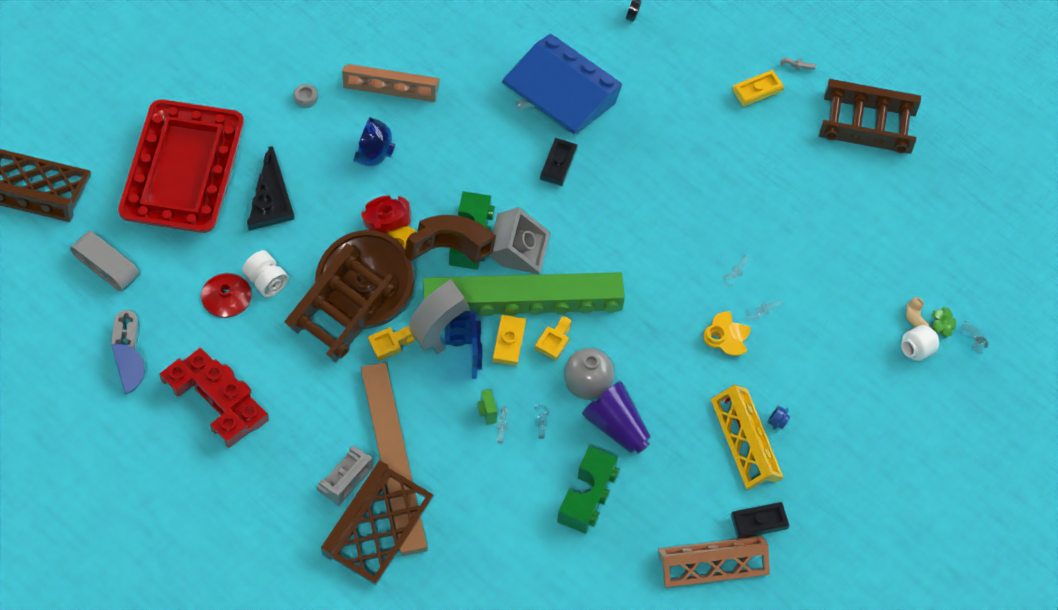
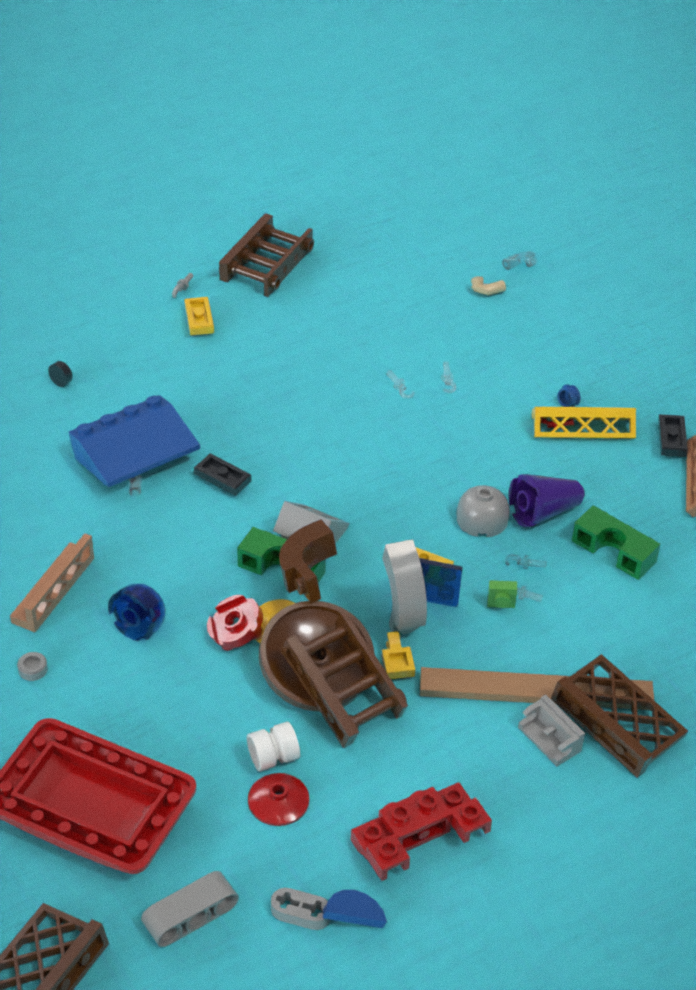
camera: 70 degrees left, 15 degrees down
(271, 200) = (166, 724): black wing -> none
(537, 293) = (378, 527): bright green brick -> none
(554, 340) = (436, 528): yellow plate -> none
(730, 335) = (468, 409): yellow plate -> none
(920, 343) = (519, 289): white head -> none
(944, 321) = (501, 272): bright green plant -> none

